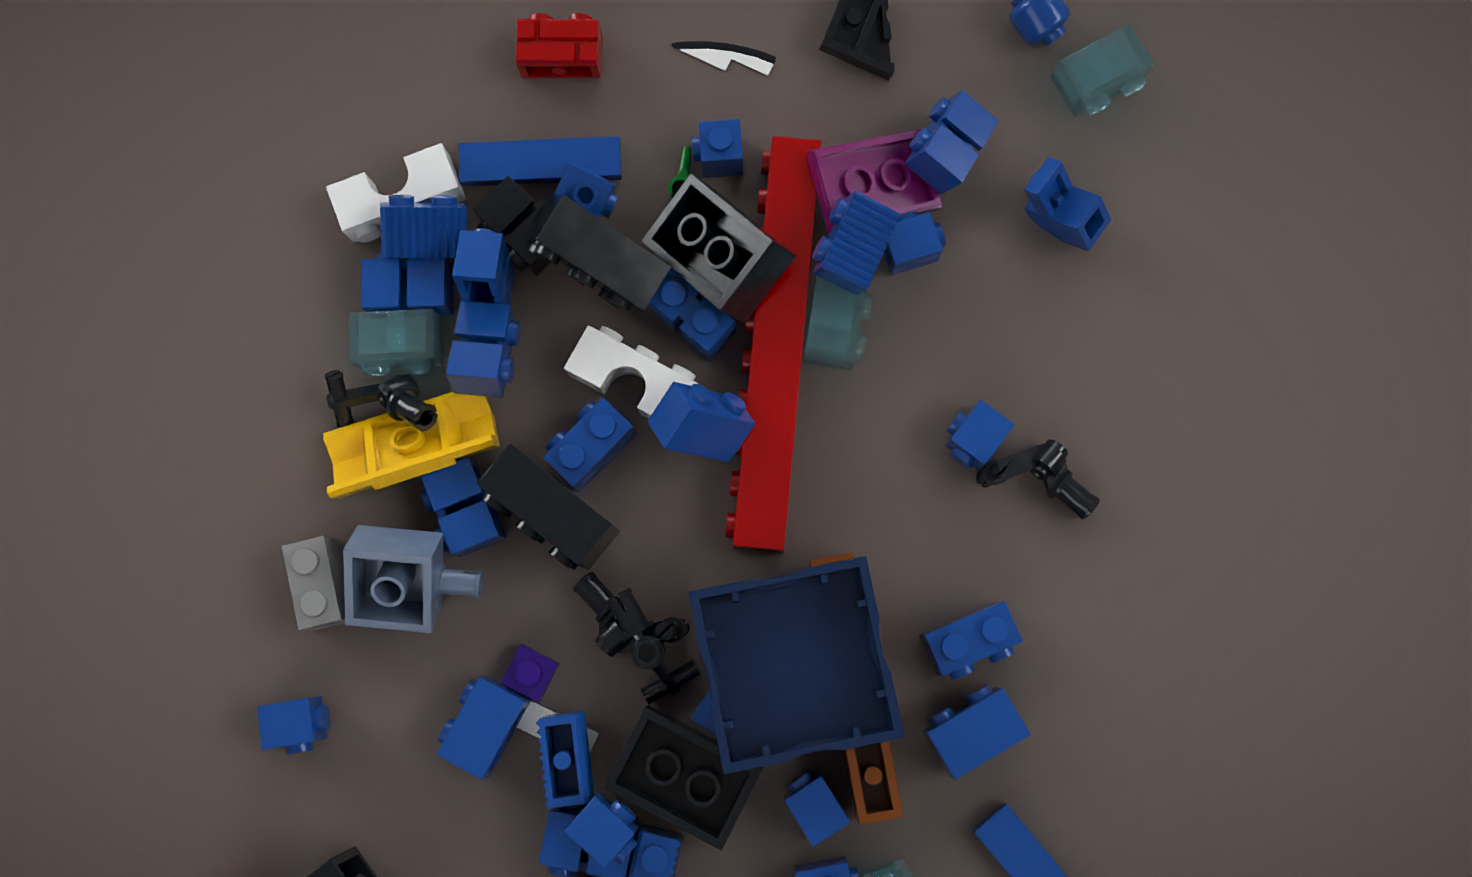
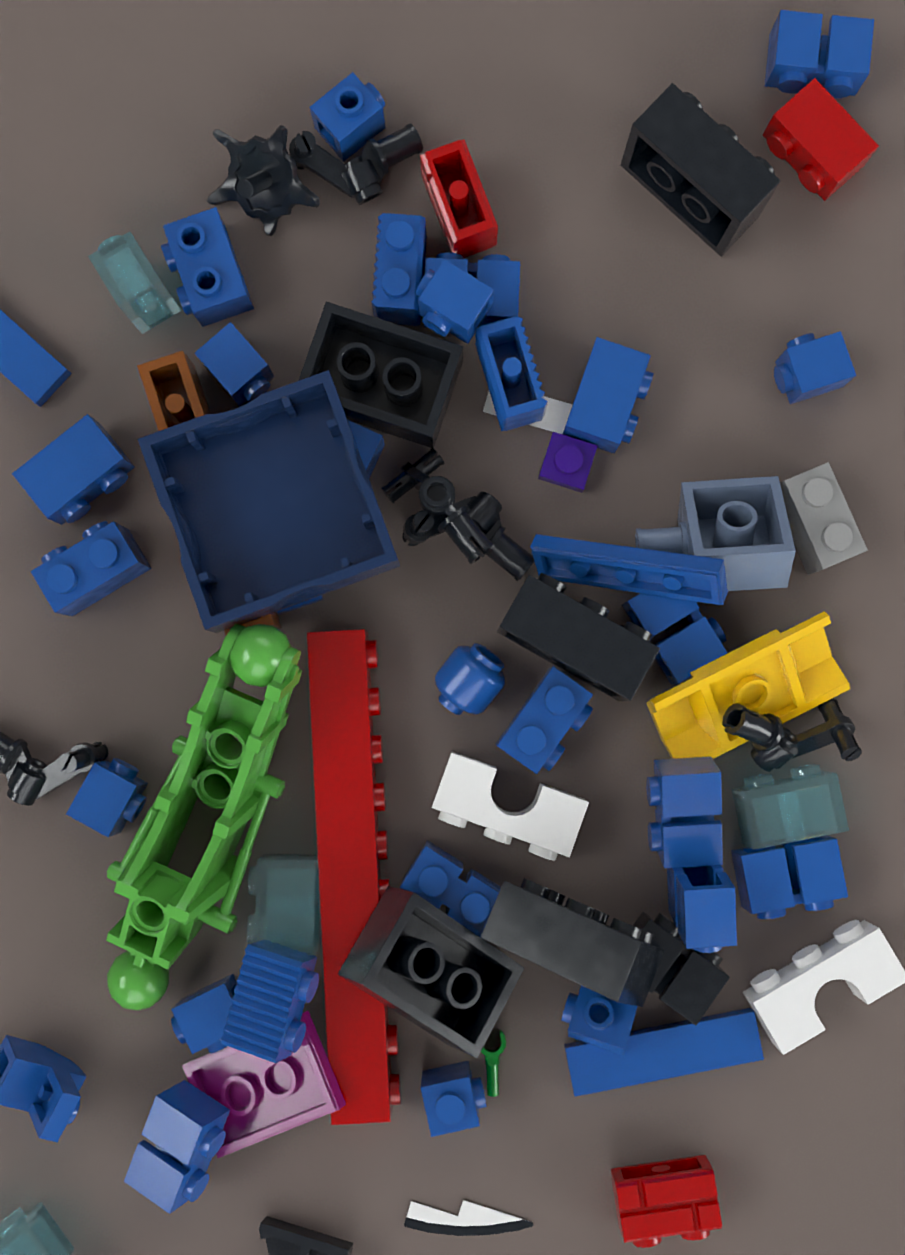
camera: 170 degrees right, 5 degrees up
(421, 228) = (785, 945): blue brick -> none
(491, 560) = (631, 569): none -> blue tile
(648, 490) = (470, 679): none -> blue head
(701, 422) = (419, 760): blue brick -> none
(874, 439) = (164, 904): none -> bright green piece

